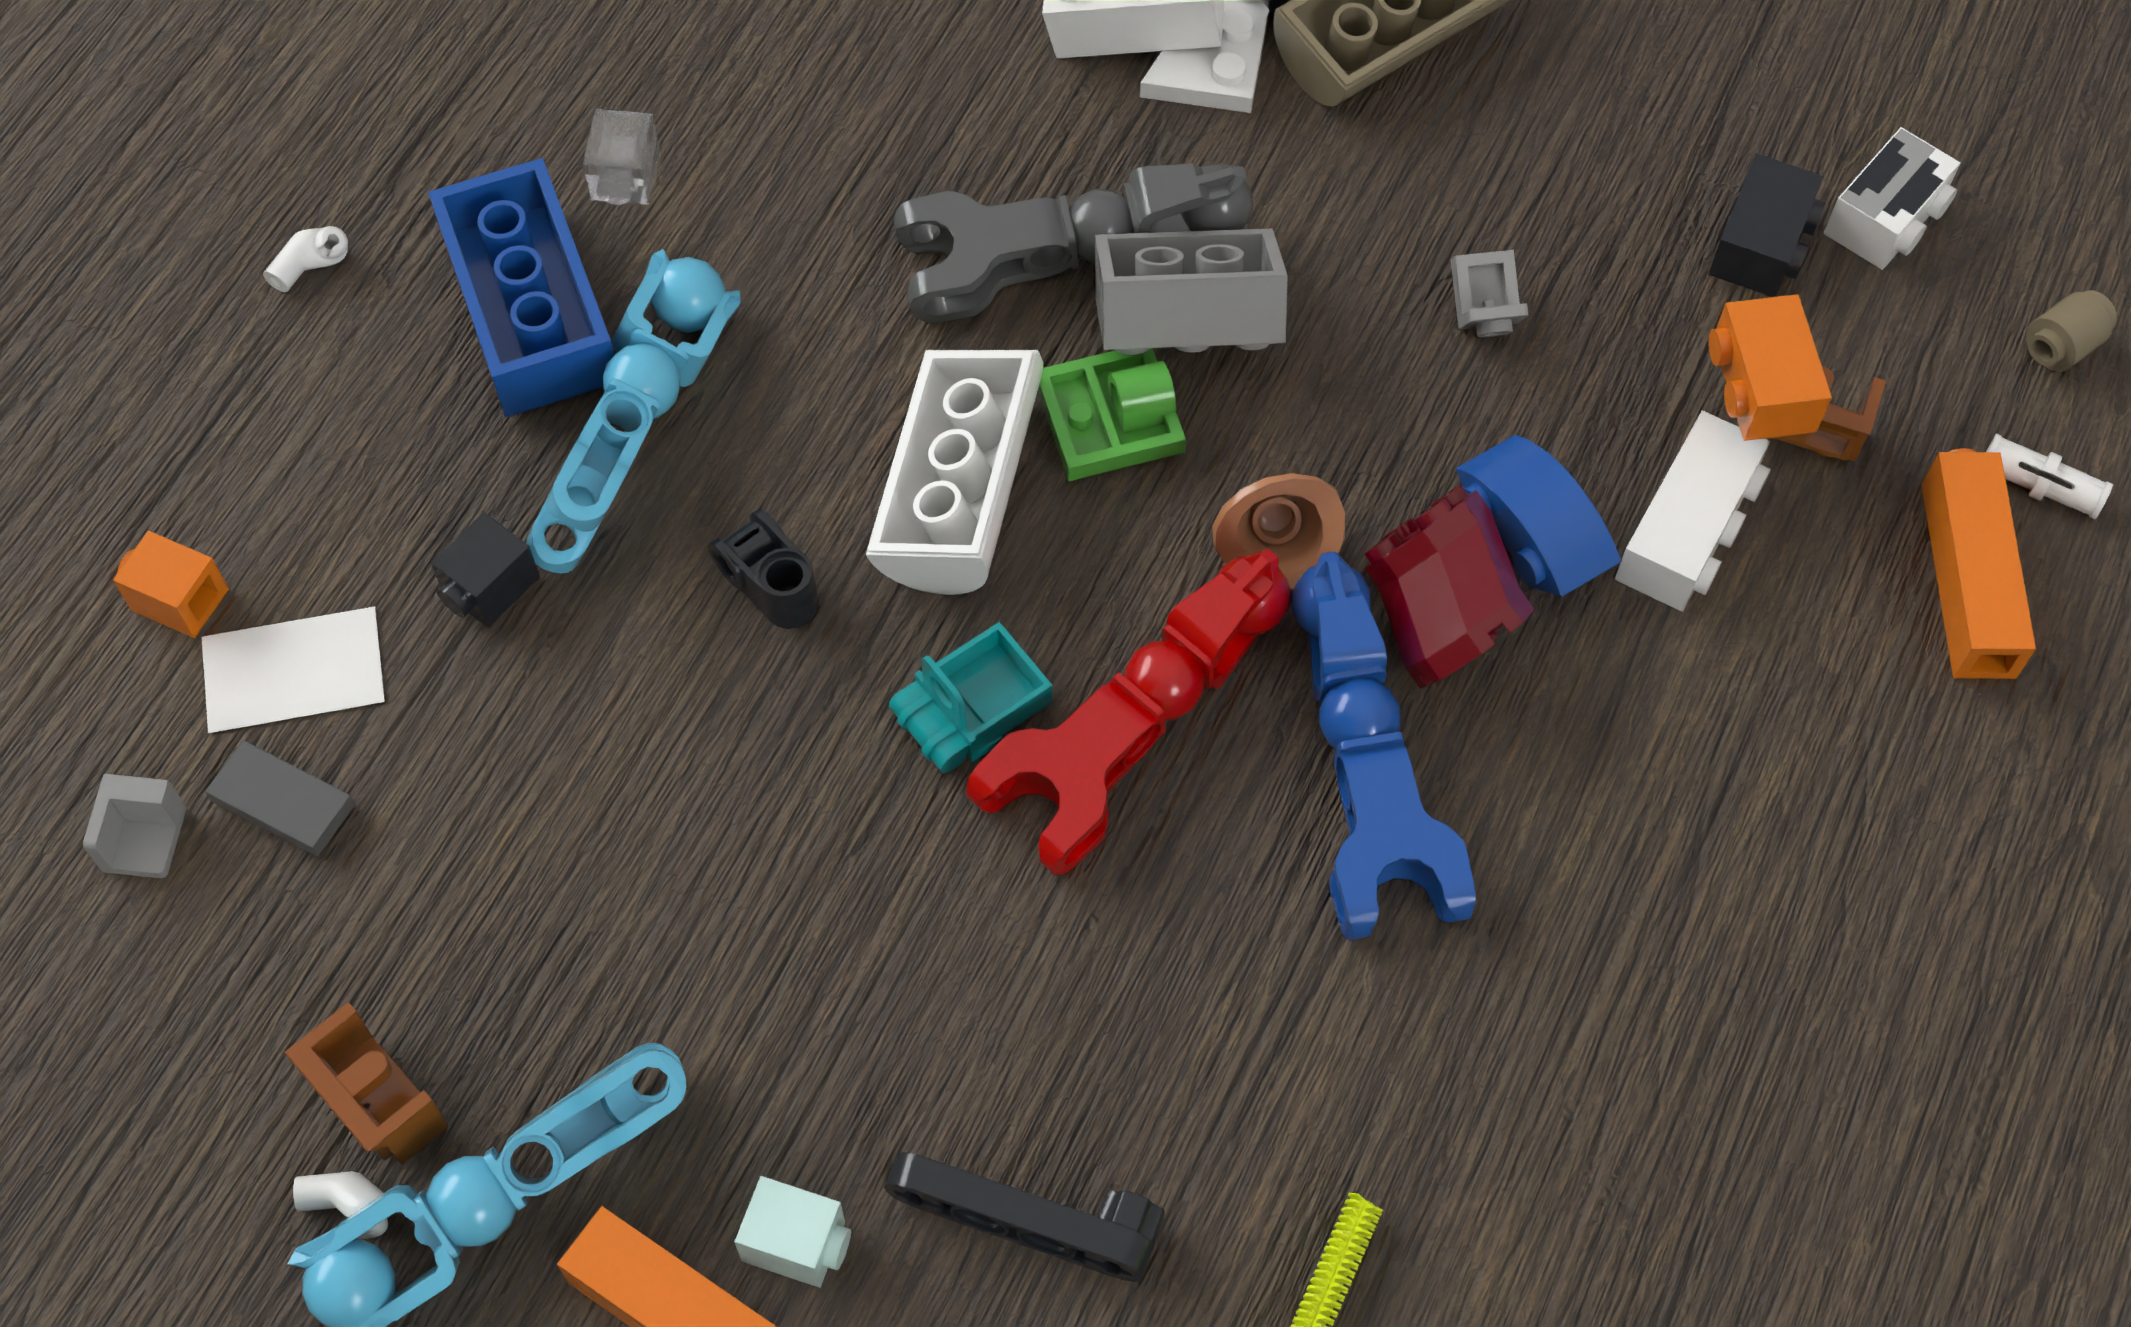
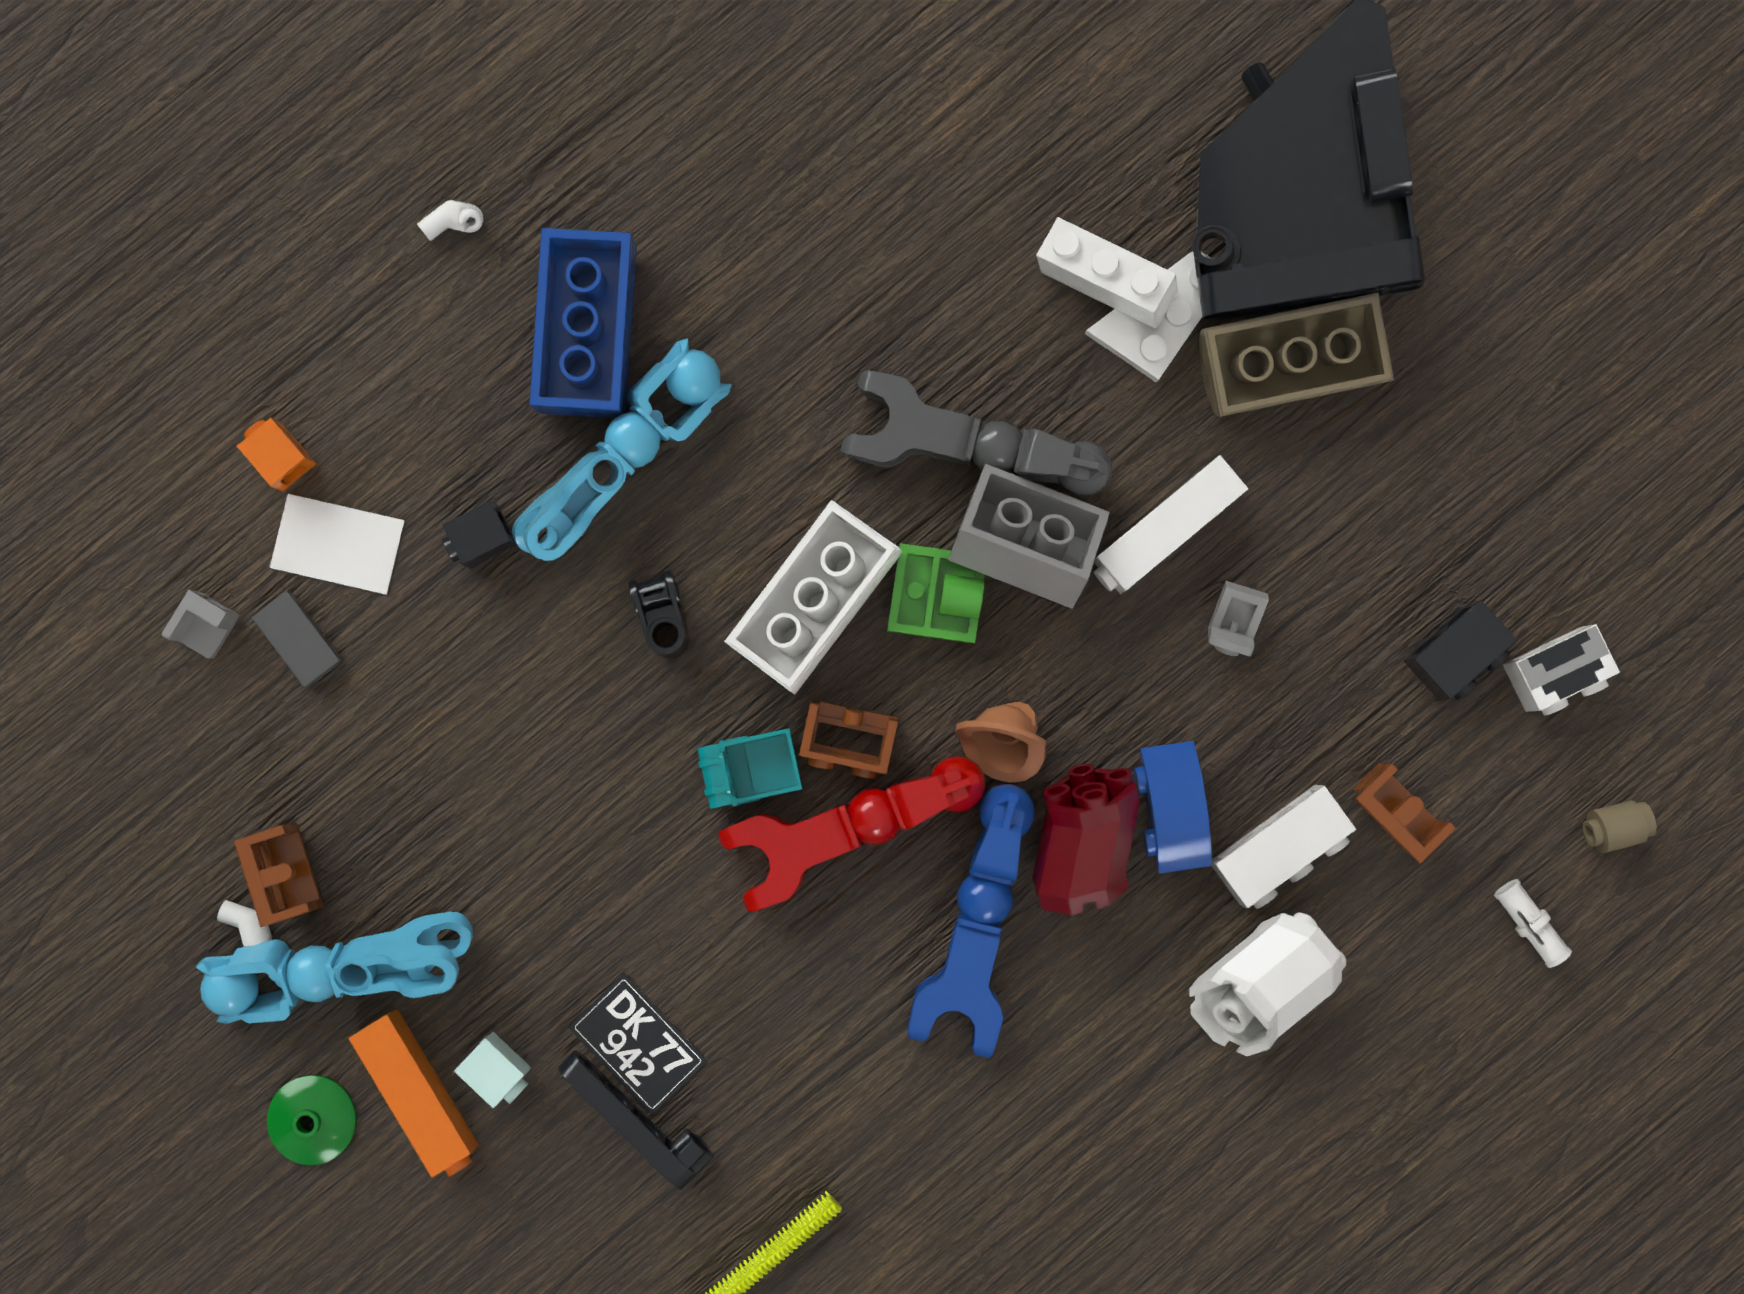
camera: 25 degrees right, 25 degrees up
(621, 157) = (693, 236): clear brick -> none
(983, 1119) = (637, 1044): none -> black sticker
(1080, 591) = (825, 755): none -> dark orange window
(1350, 231) = (1168, 526): none -> white brick
(1770, 367) = (1376, 794): orange brick -> none
(1773, 660) = (1267, 983): none -> white brick
(1977, 565) = (1445, 967): orange brick -> none

